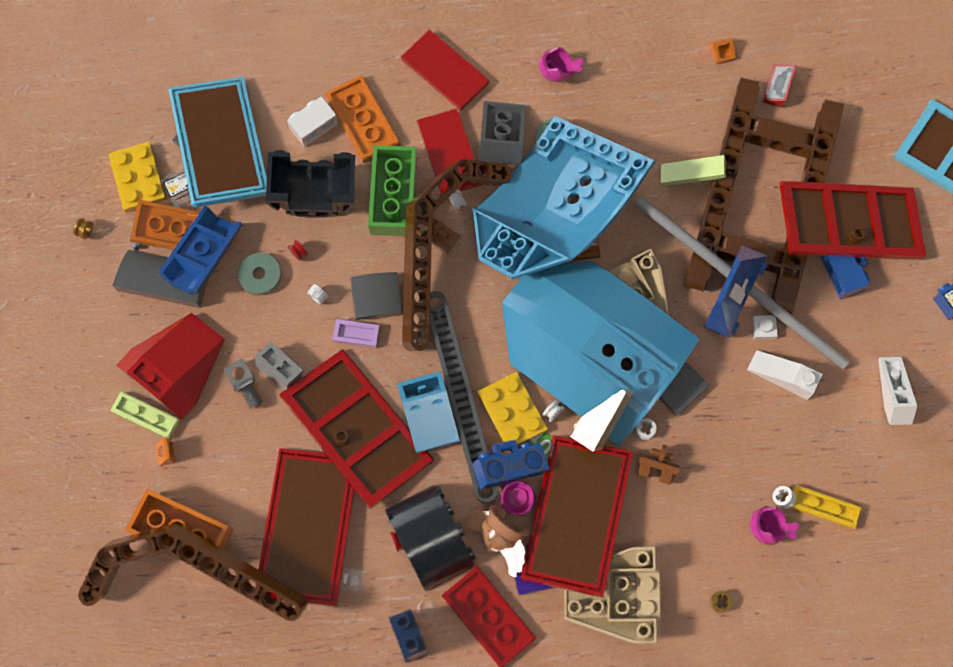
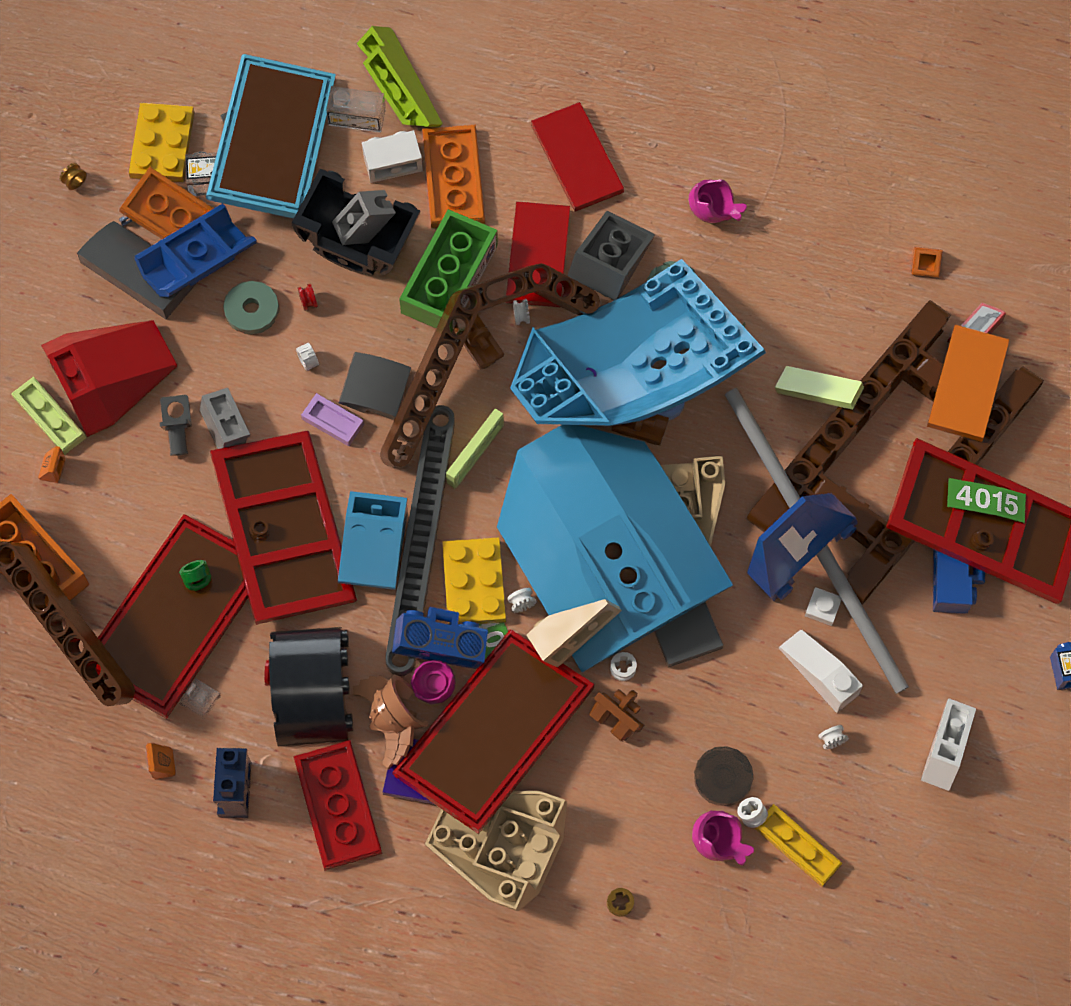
camera: 20 degrees right, 5 degrees down
(270, 97) = (356, 109): none -> clear brick
(289, 62) = (397, 78): none -> lime wedge
(310, 491) = (193, 572): none -> green tile
(318, 171) = (367, 215): none -> light grey brick
(346, 640) = (160, 761): none -> orange slope
(470, 313) = (475, 448): none -> yellowish green tile
(751, 479) = (723, 776): none -> clear smoke tile
(795, 126) = (968, 383): none -> orange tile
(814, 418) = (833, 736): none -> white bush
(846, 205) = (986, 499): none -> bright green sticker

